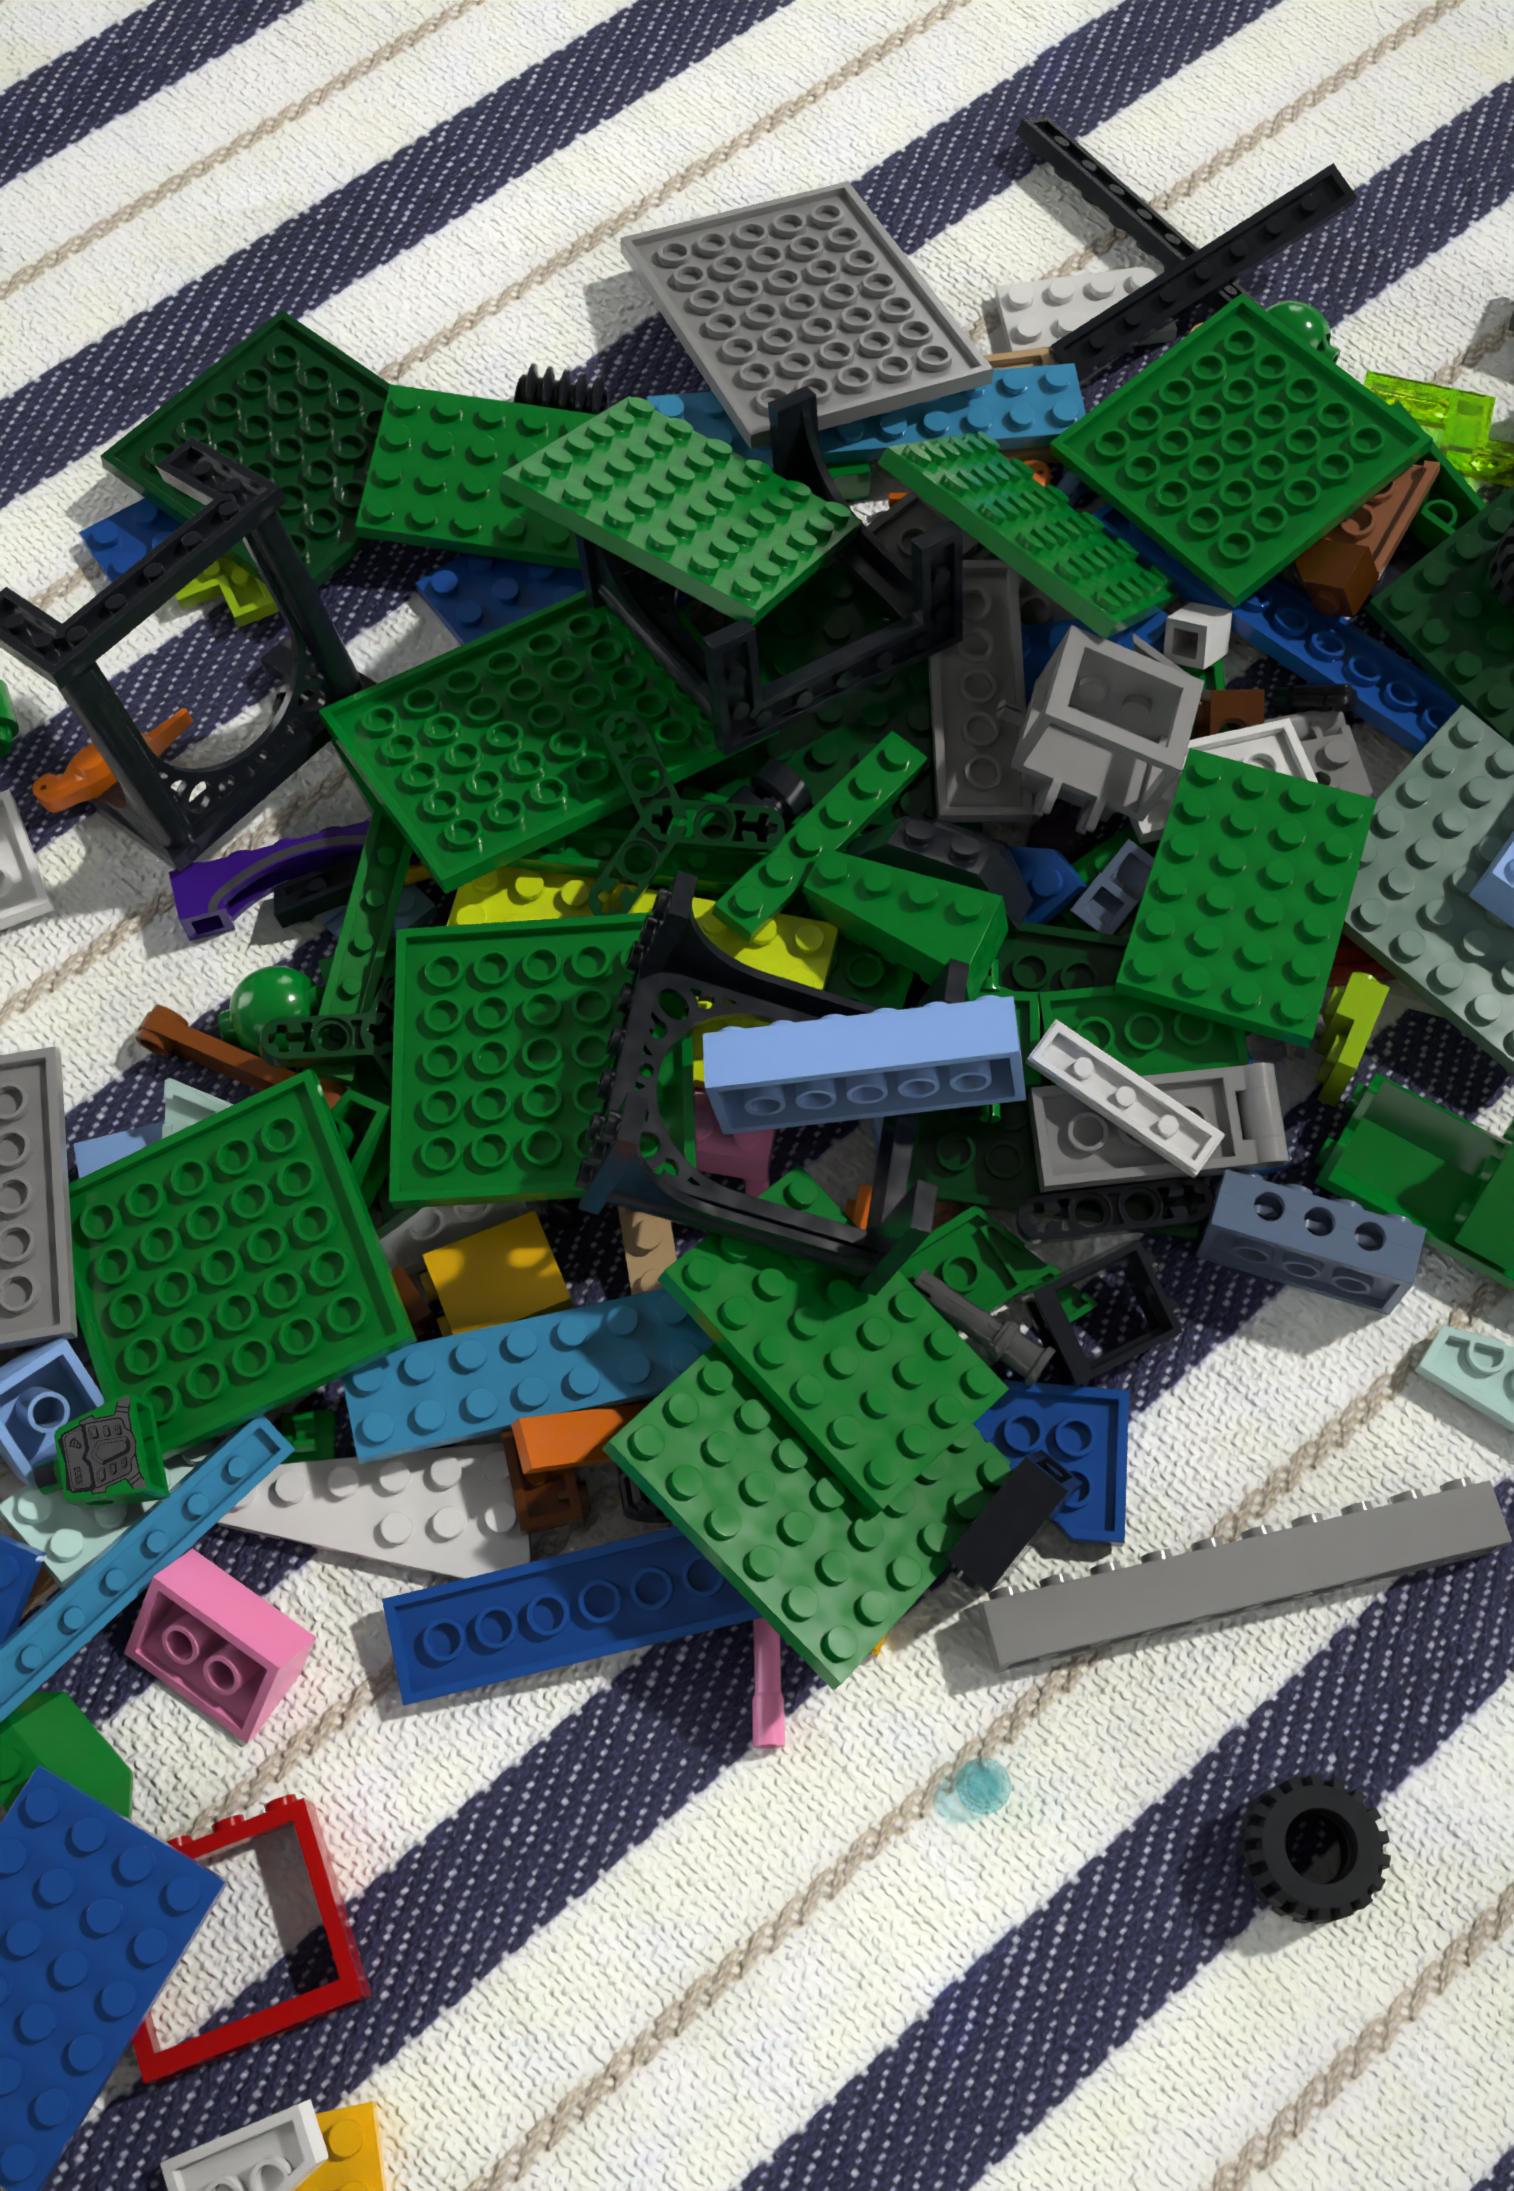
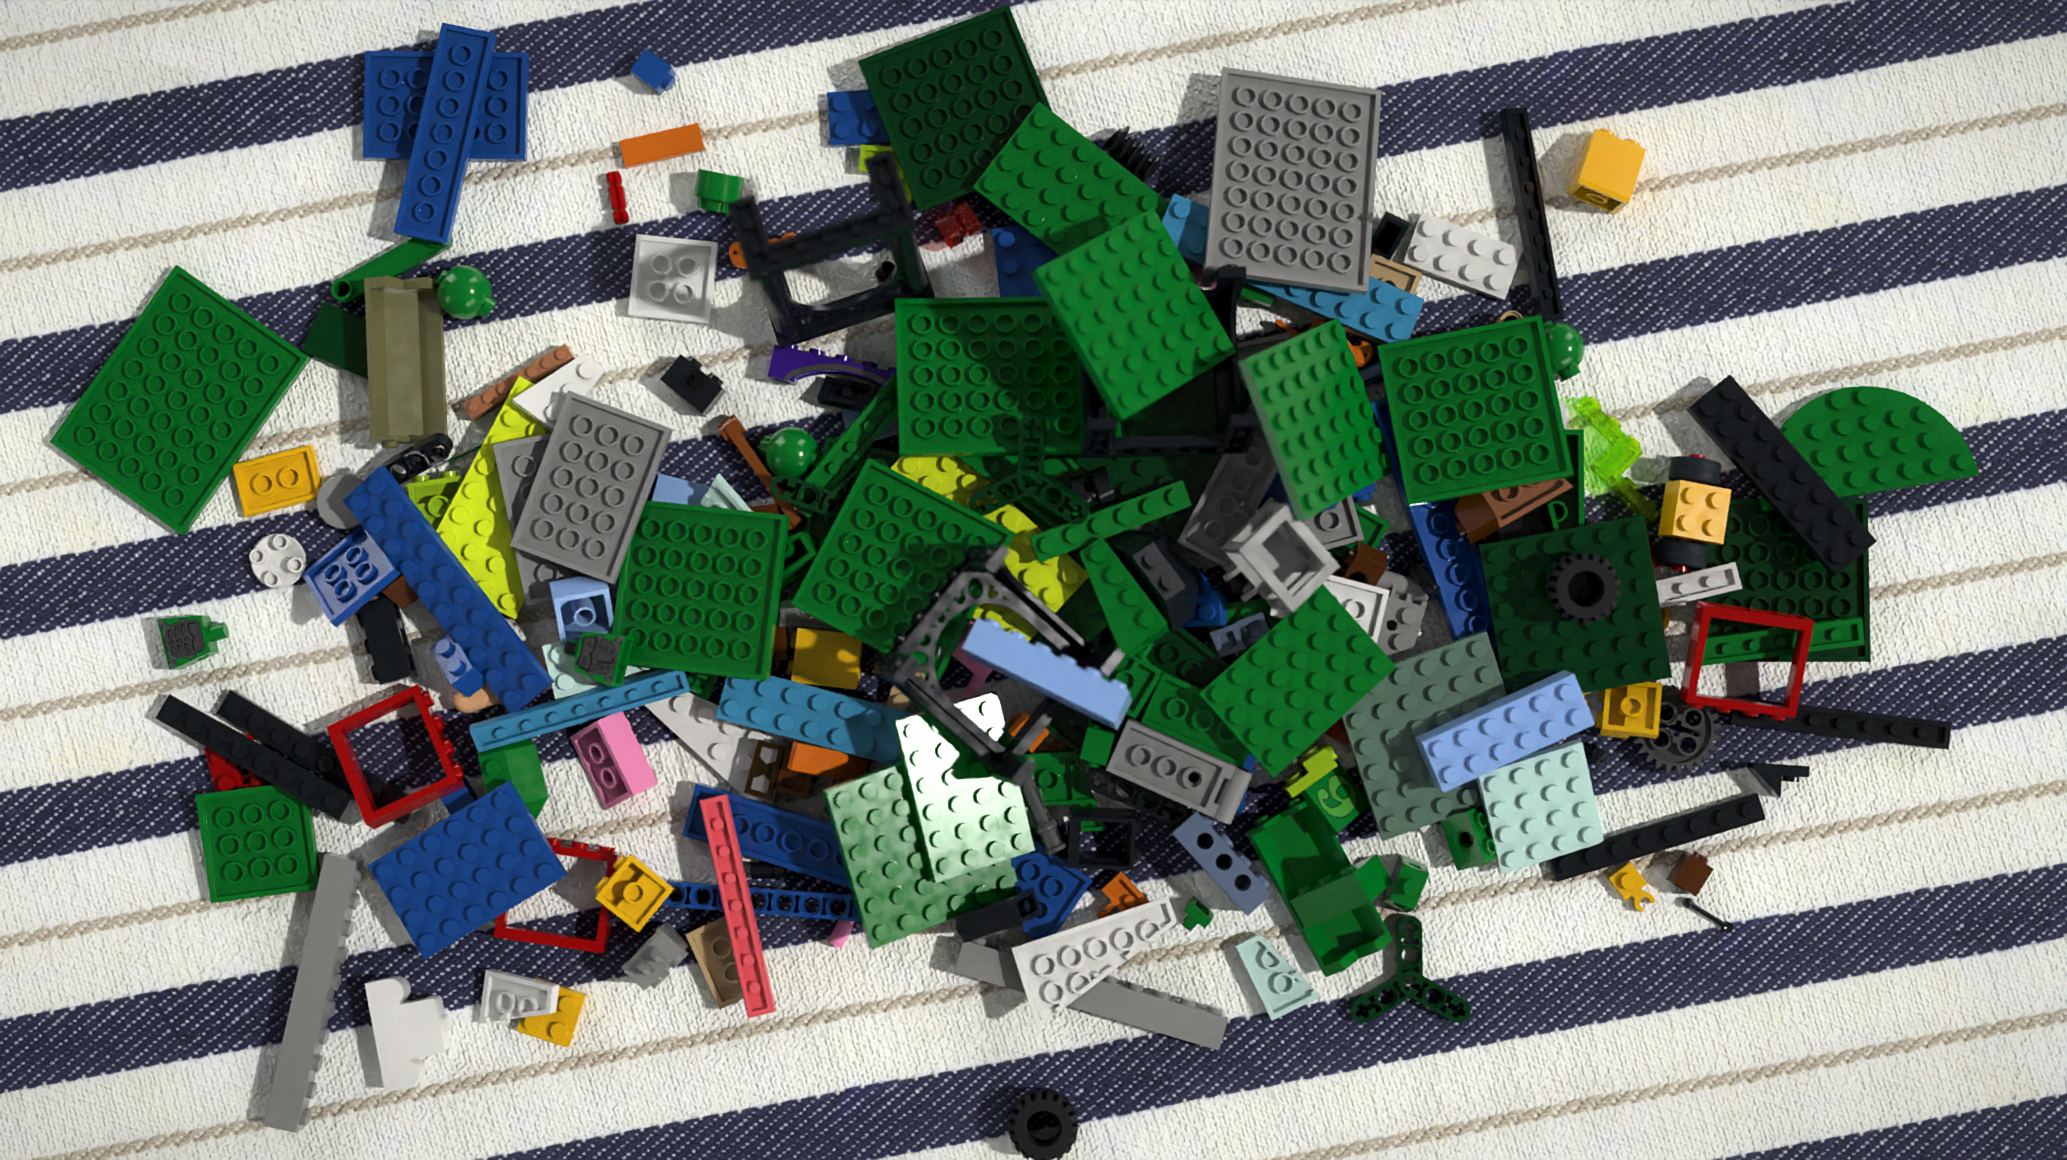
camera: 30 degrees right, 20 degrees up
(90, 1014) = (678, 378): none -> black brick
(361, 595) = (957, 224): none -> clear red wheel
(361, 1839) = (633, 891): none -> yellow plate
(467, 1943) = (655, 956): none -> light grey hinge
(488, 1507) = (764, 769): none -> dark brown piece
(567, 1739) = (771, 897): none -> blue beam
(568, 1765) = (737, 906): none -> coral tile
(584, 1683) = (766, 870): none -> black pin
(598, 1881) = (716, 959): none -> tan plate
(973, 303) = (1388, 234): none -> black slope
(983, 1785) = (919, 1015): clear light blue plate -> none
(1006, 1163) = (1097, 745): none -> green brick
(1125, 1098) = (1167, 752): white tile -> none
(1186, 1523) = (1074, 960): none -> white wing
(1197, 635) = (1383, 505): white brick -> none
(1201, 132) = (1607, 171): none -> yellow slope
(1205, 272) = (1534, 283): black plate -> none
(1205, 1393) = (1122, 894): none -> orange hinge
(1325, 1353) = (1197, 914): none -> green tile
(1413, 1061) = (1335, 799): none -> green tile

